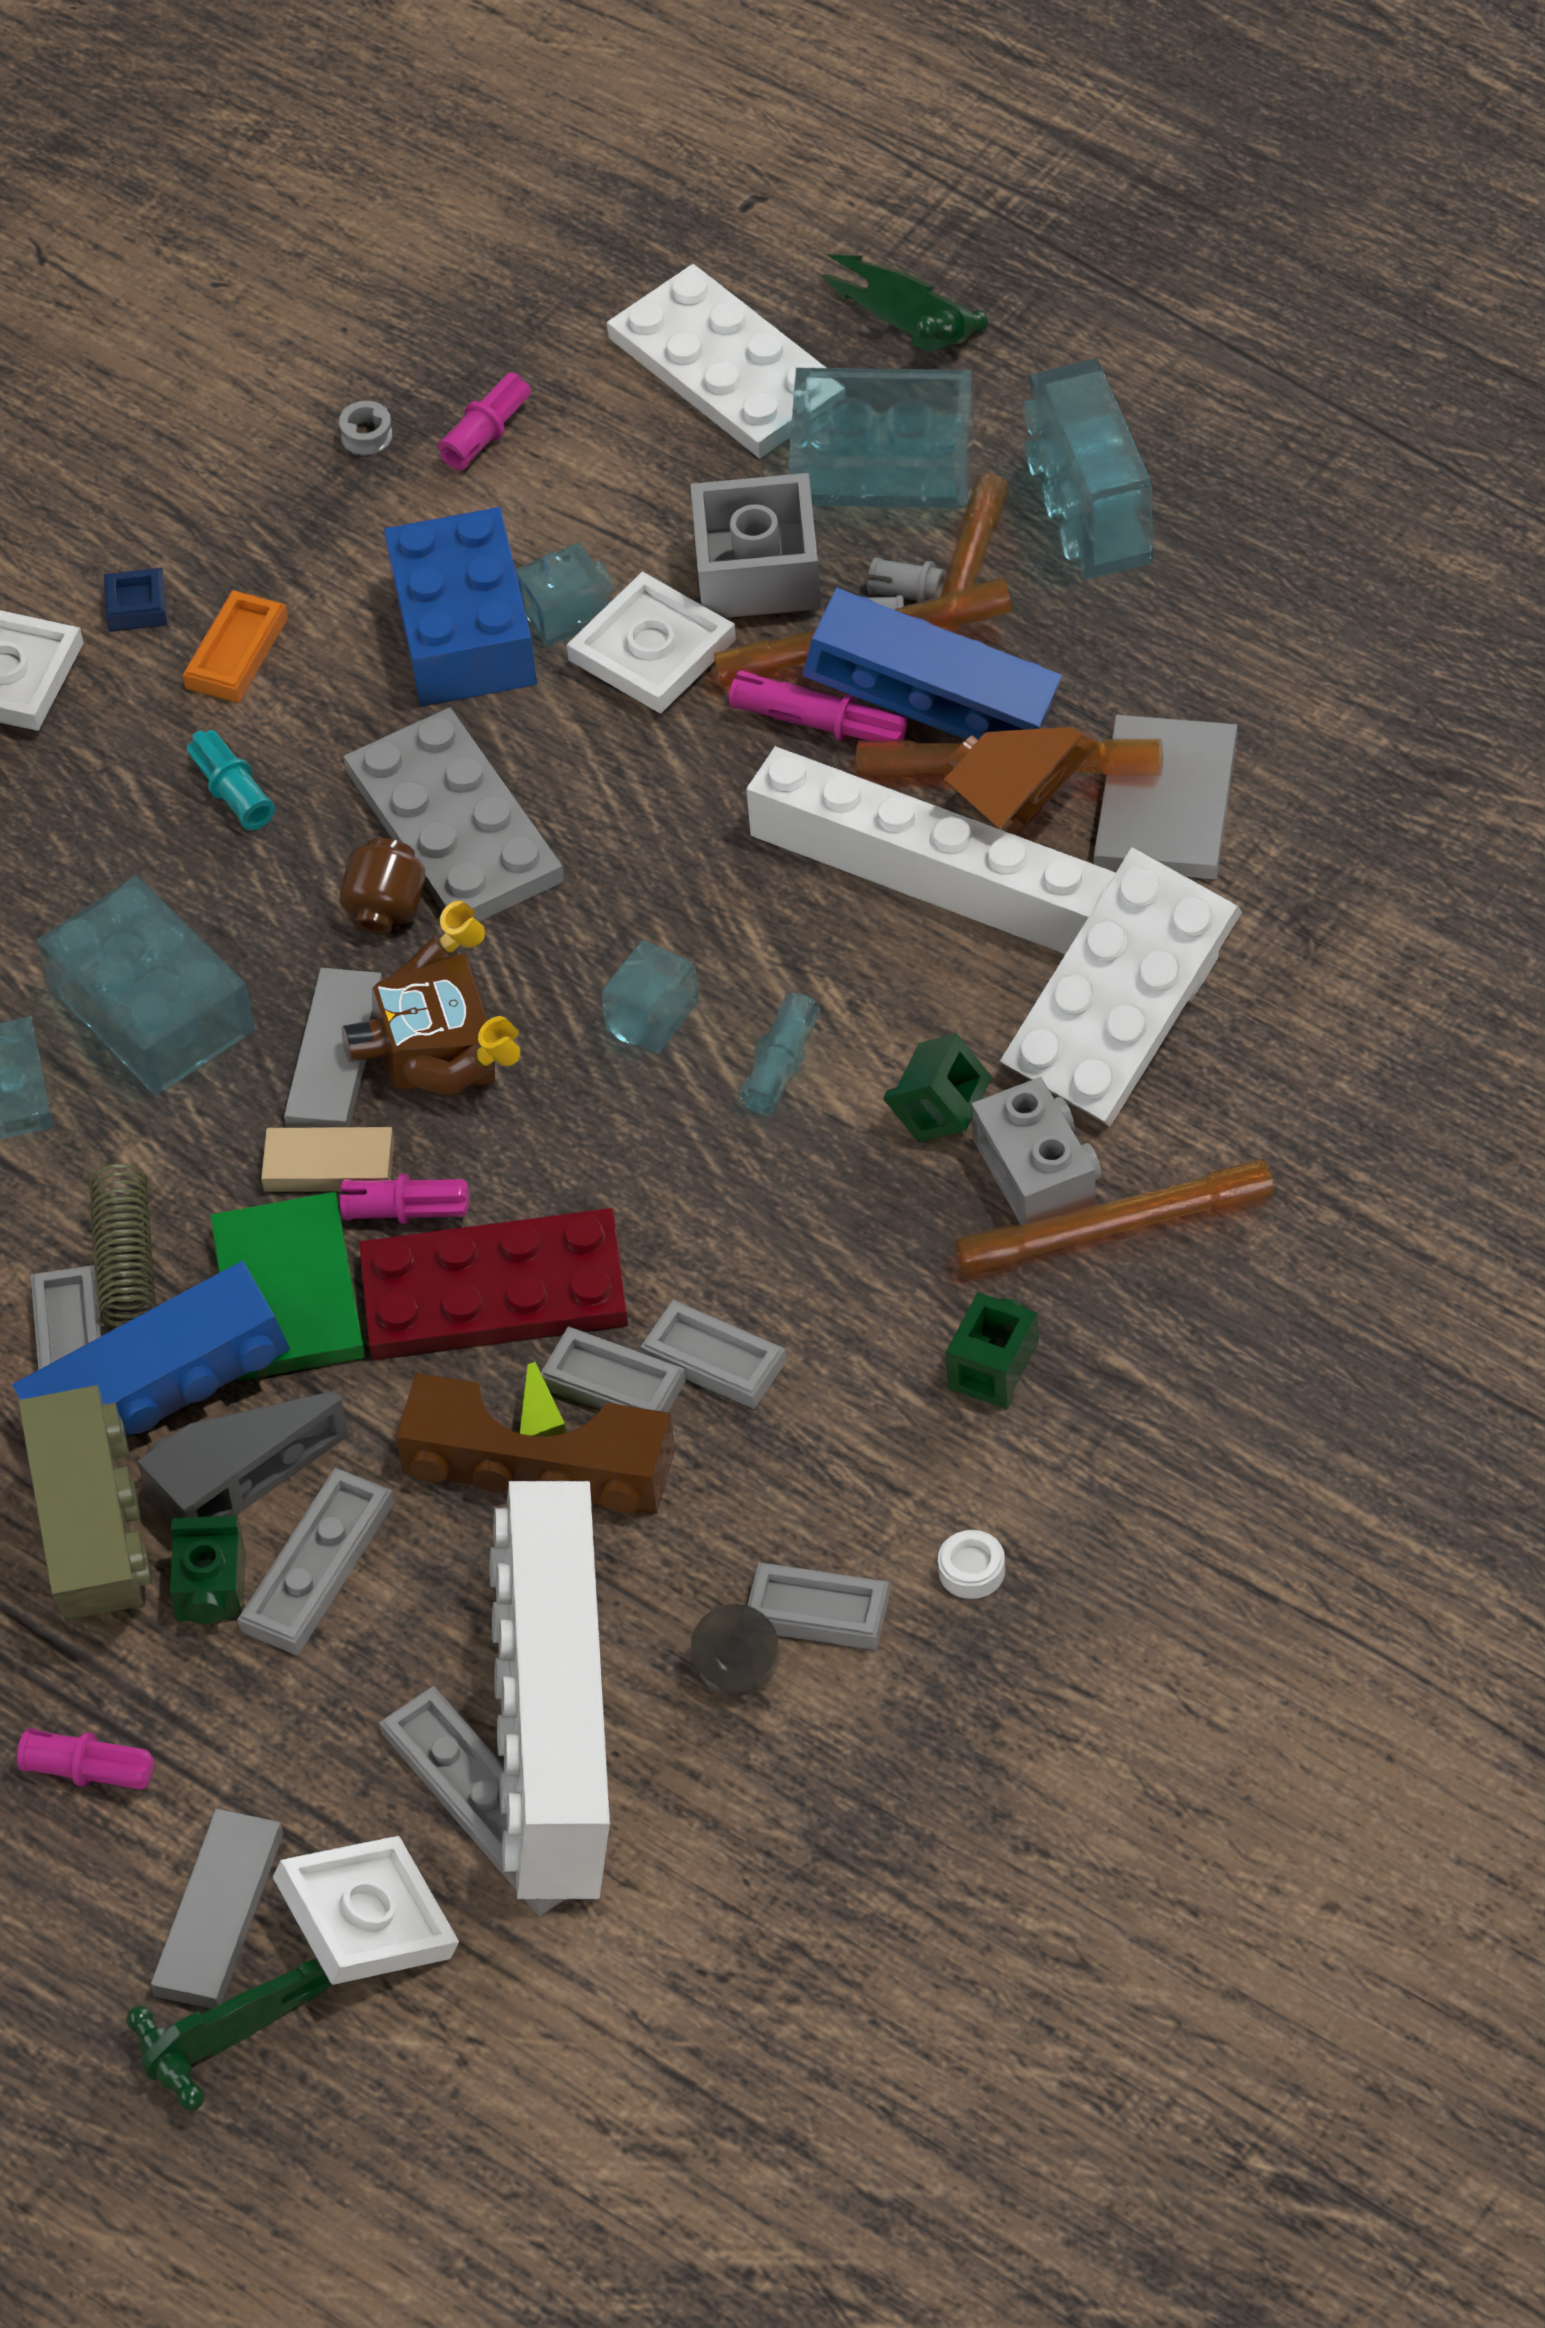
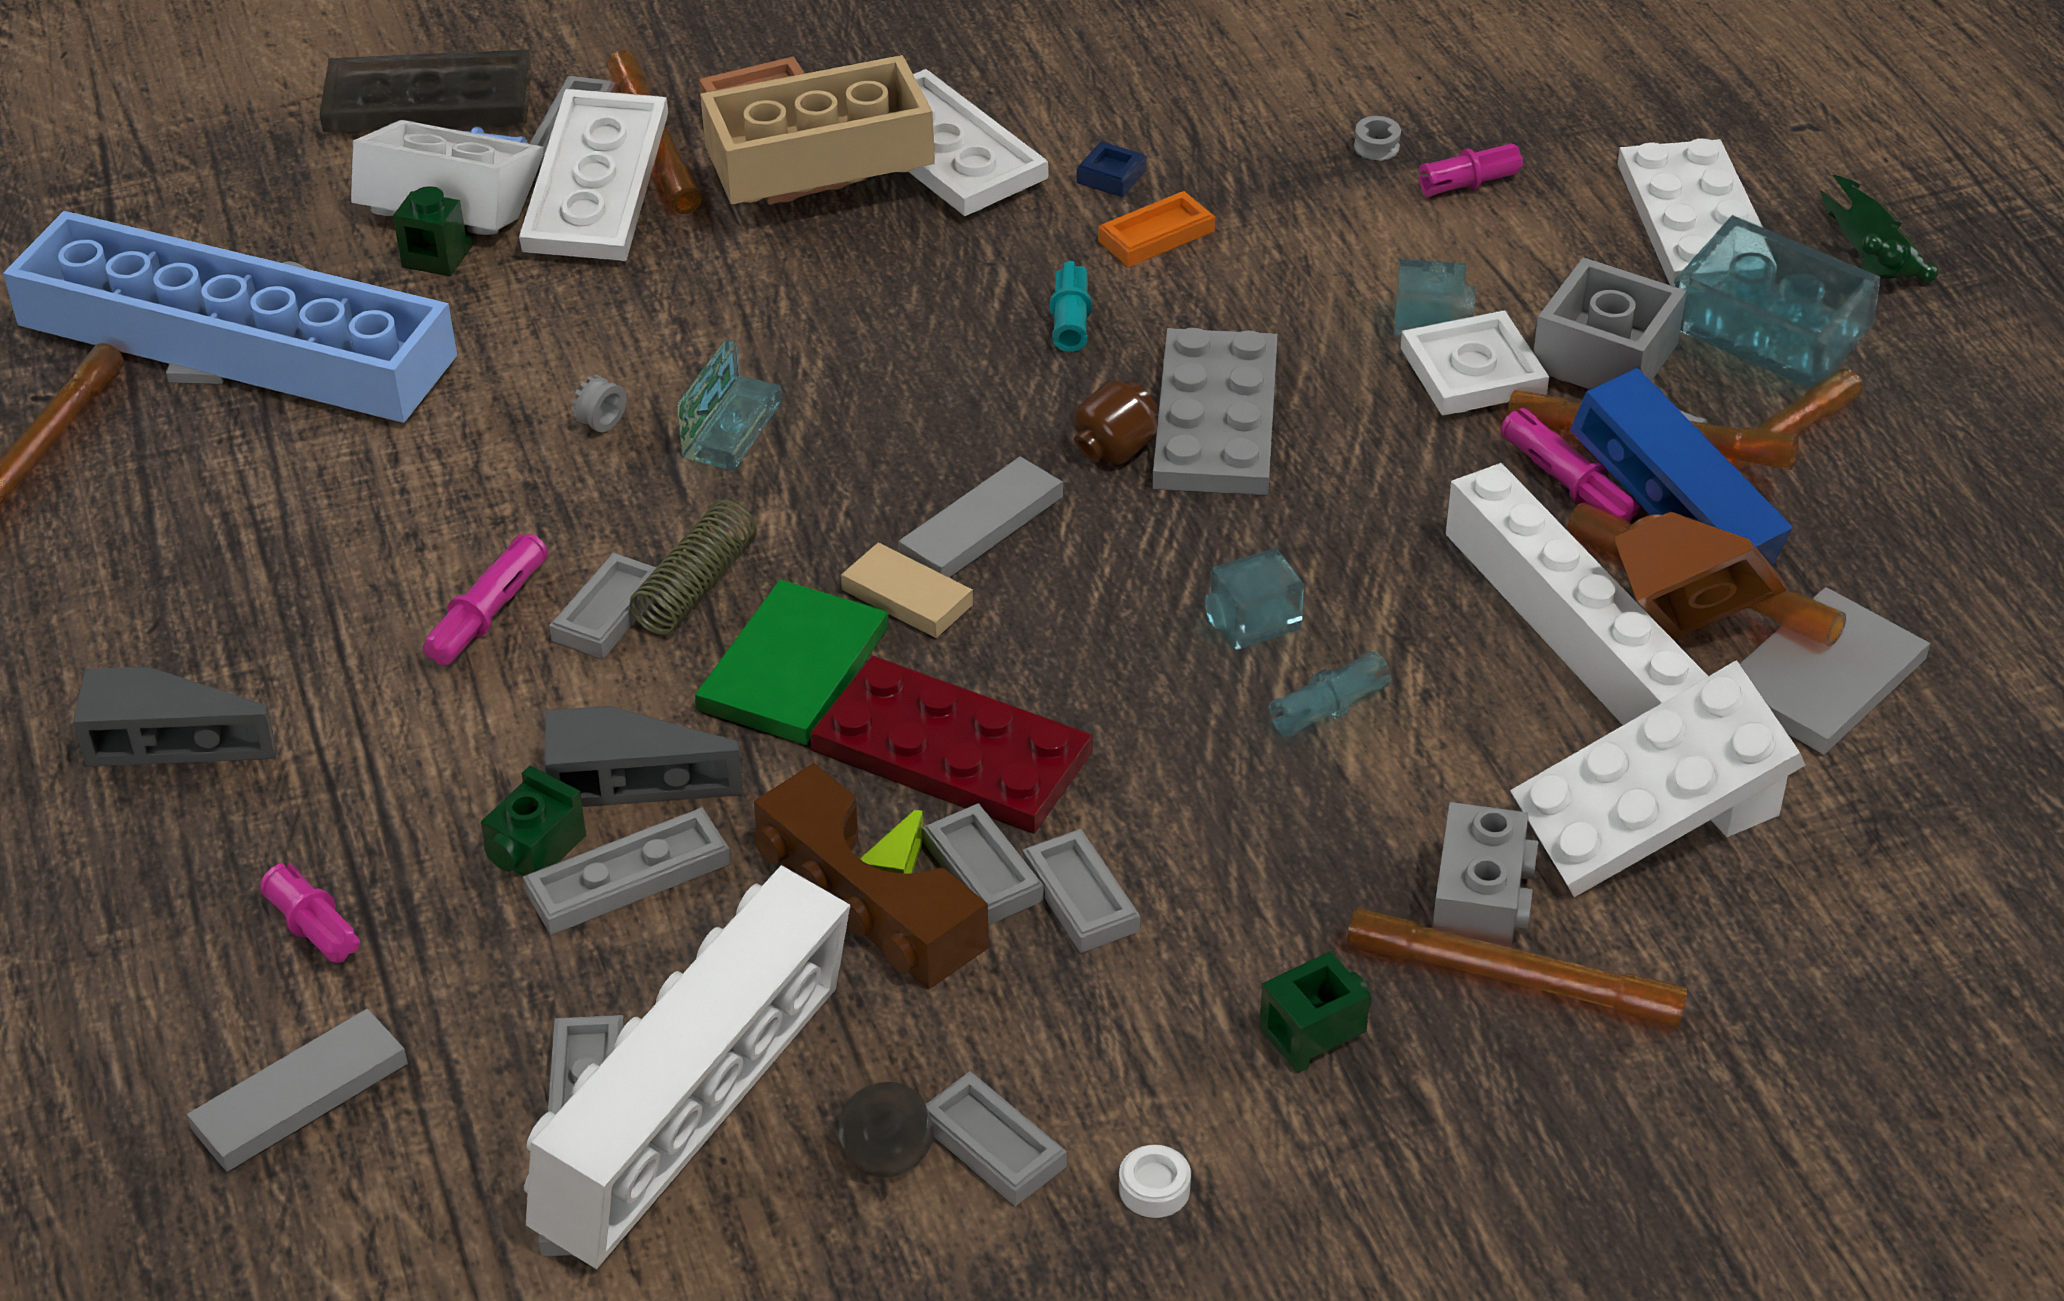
camera: 30 degrees right, 10 degrees down
(85, 1502) = (462, 710): olive brick -> none
(146, 985) = (878, 402): clear light blue brick -> none
(172, 1351) = (627, 654): blue brick -> none
(172, 2051) = (212, 1182): dark green piece -> none
(365, 1909) = (392, 1155): white plate -> none
(404, 1199) = (934, 643): dark pink axle -> none
(433, 1019) = (1070, 526): reddish brown torso -> none
(460, 606) = (1339, 271): blue brick -> none
(908, 580) = (1719, 409): light grey pin -> none
(938, 1088) = (1432, 777): dark green brick -> none
(1089, 469) = (1932, 396): clear light blue brick -> none

